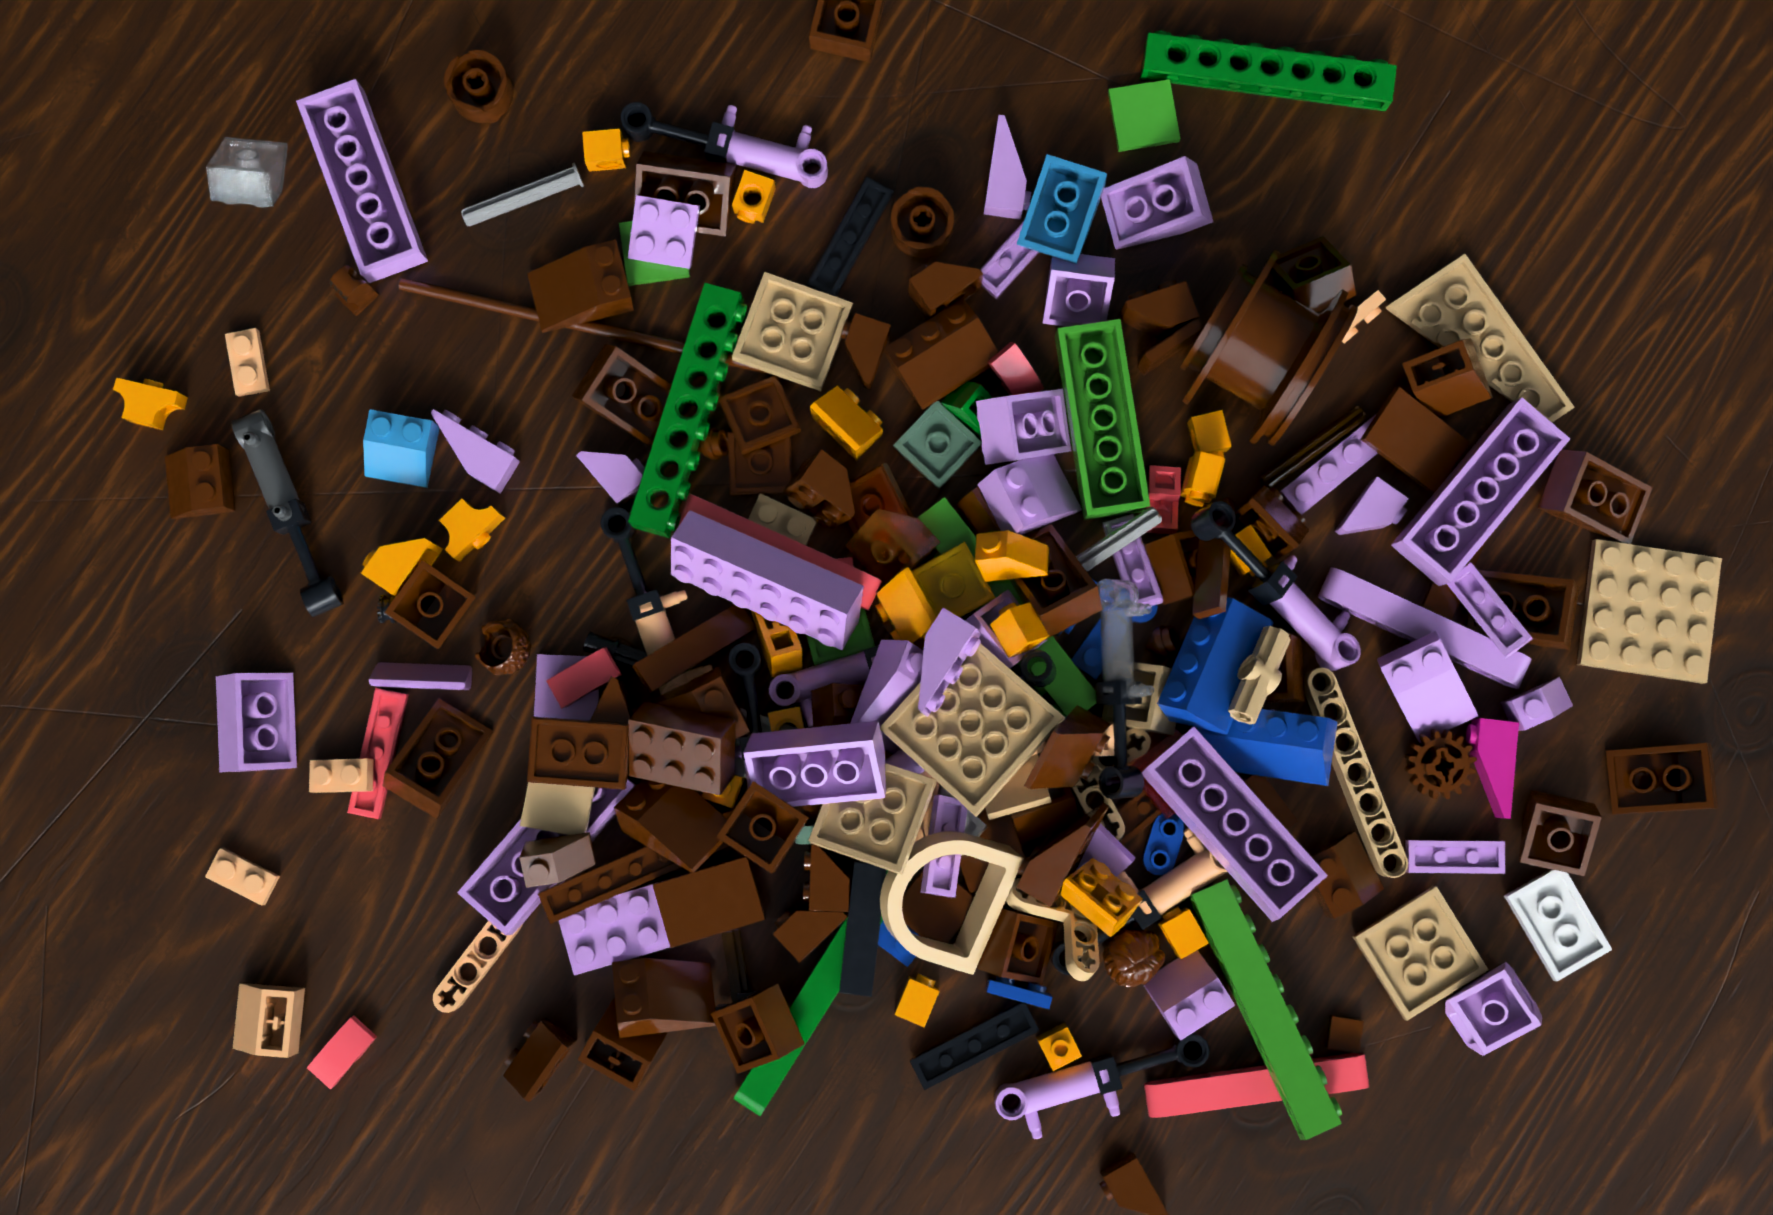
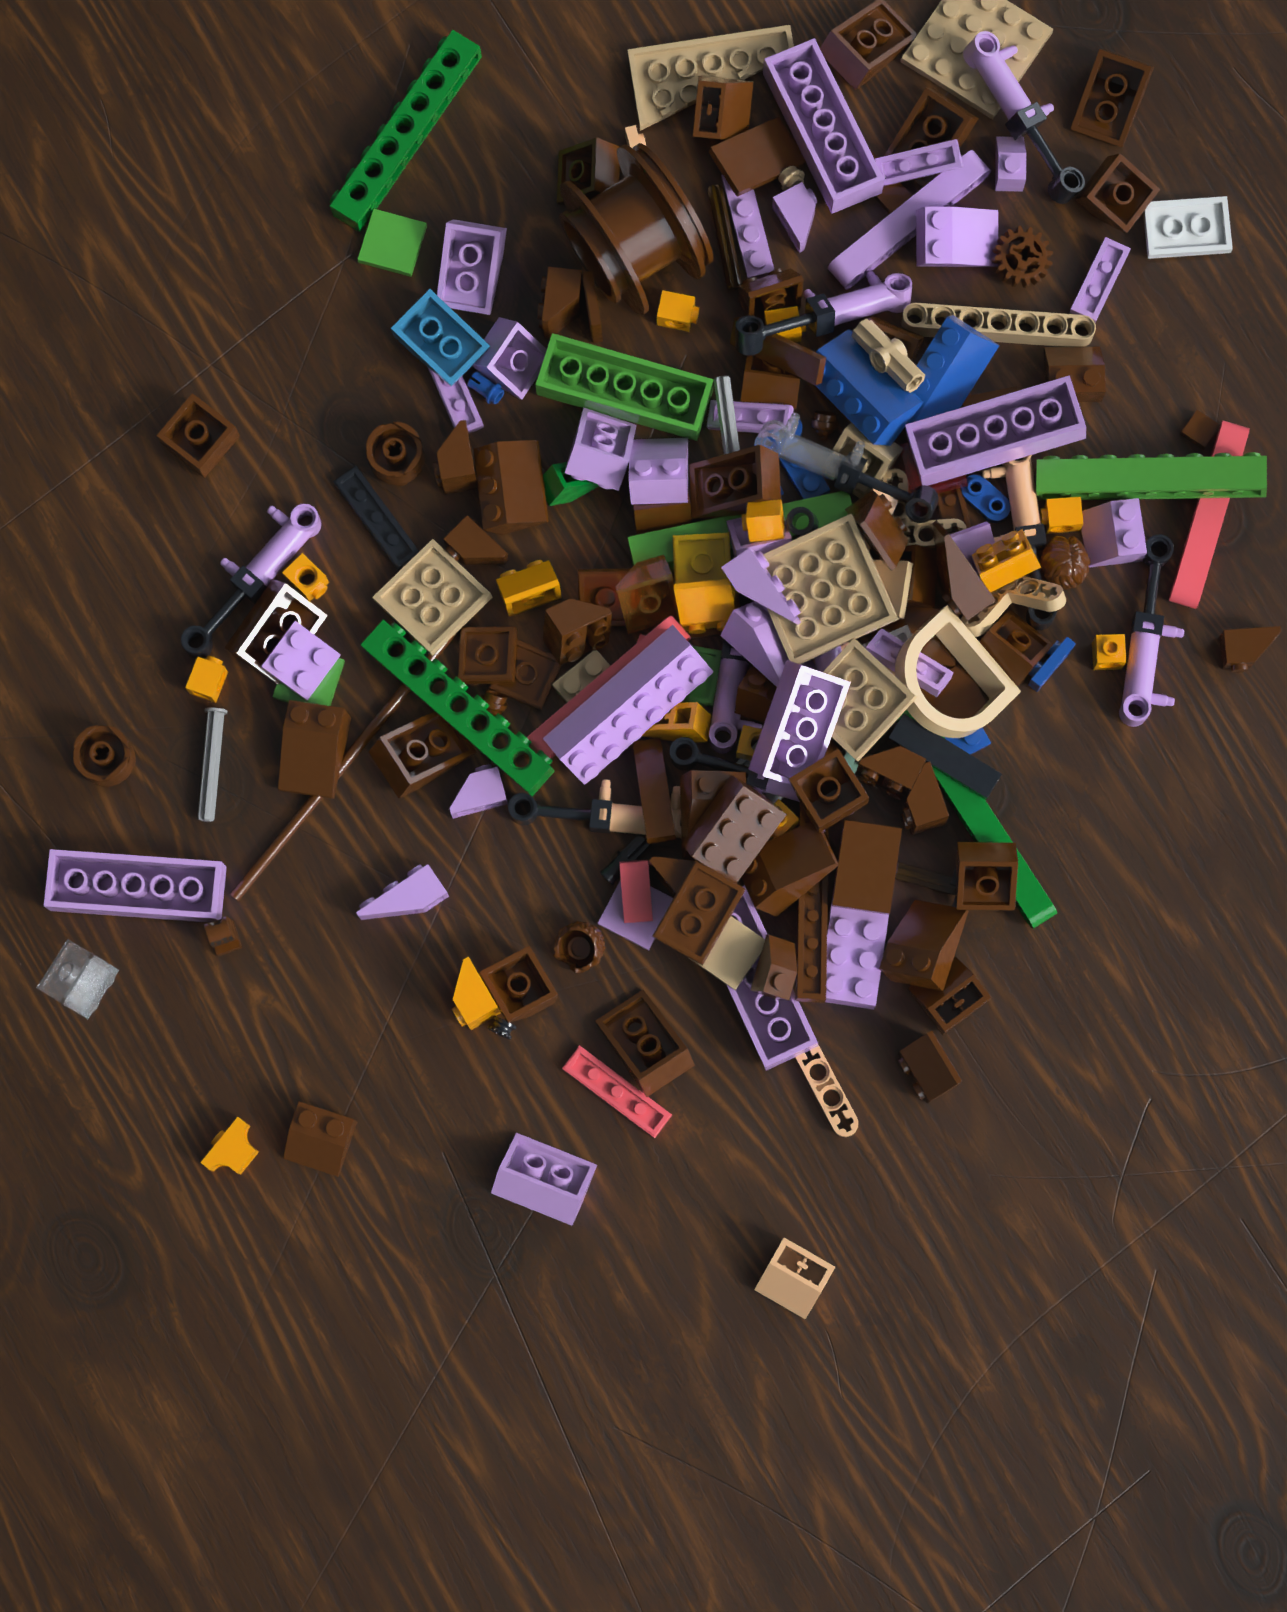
camera: 60 degrees left, 5 degrees down
(242, 876) = (666, 1249): light nougat plate -> none
(247, 362) = (237, 1054): light nougat plate -> none
(285, 509) = (373, 1074): piece -> none
(341, 775) = (622, 1127): light nougat plate -> none
(341, 1052) = (850, 1230): coral slope -> none
(399, 448) = (373, 958): dark azure slope -> none
(421, 676) = (570, 1026): lavender slope -> none
(469, 528) = (466, 930): light orange brick -> none
(917, 999) = (1020, 746): light orange brick -> none
(937, 444) = (581, 525): sand green plate -> none
(974, 1045) = (1077, 718): black plate -> none
(1007, 179) = (390, 371): lavender slope -> none
(1010, 556) = (702, 503): light orange slope -> none
(1015, 371) = (552, 435): coral slope -> none
(1035, 283) = (492, 392): none -> blue pin
(1164, 496) = (708, 366): coral slope -> none
(1202, 478) = (709, 331): light orange brick -> none
(1409, 485) = (790, 177): none -> tan plate
(1420, 953) = (1163, 342): tan plate -> none
(1493, 1010) = (1233, 308): lavender slope -> none
(1496, 749) = (1033, 210): dark pink slope -> none
(1595, 693) = (1022, 116): none -> piece

